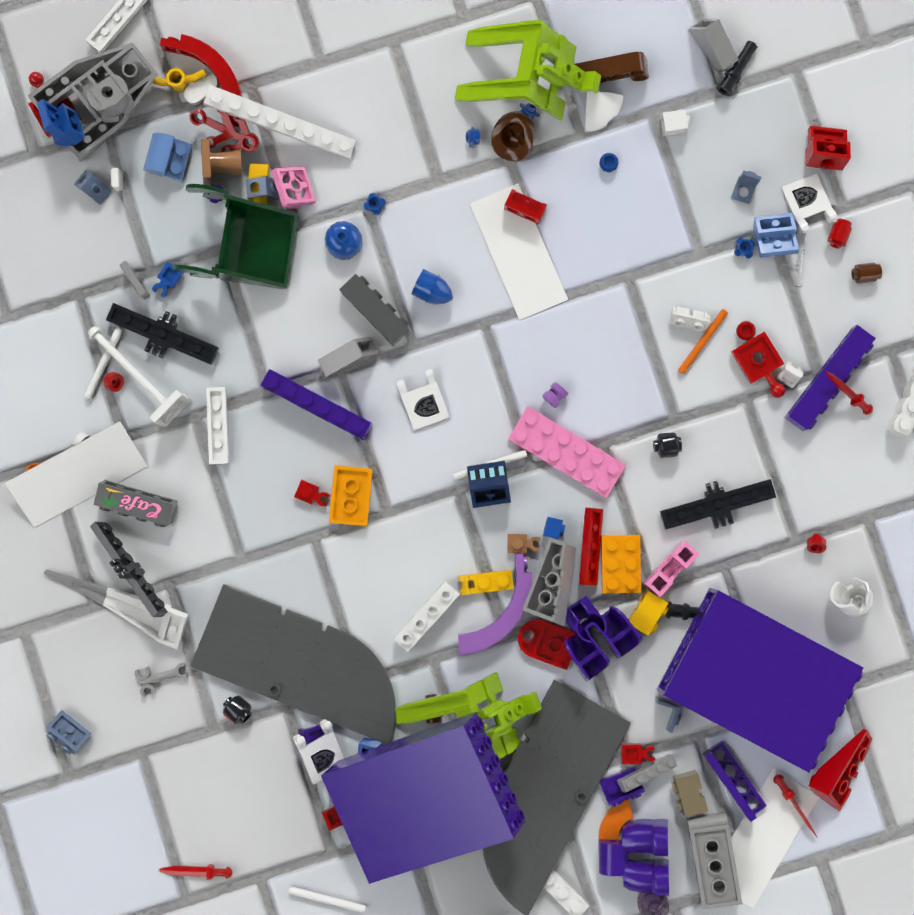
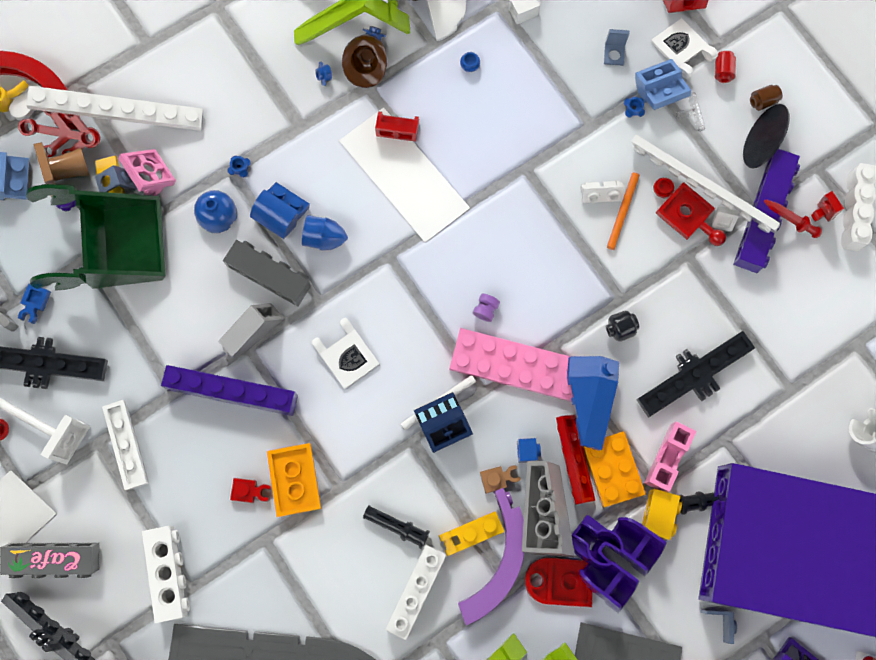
camera: 20 degrees left, 10 degrees down
(217, 570) = (159, 586): none -> white brick
(399, 255) = (278, 209): none -> blue brick
(433, 565) = (405, 530): none -> black pin
(623, 495) = (593, 390): none -> blue wedge
(785, 347) = (710, 188): none -> white plate
(816, 544) = (815, 386): red tile -> none
(853, 310) = (766, 136): none -> black shield
(883, 392) = (828, 207): none -> red plate

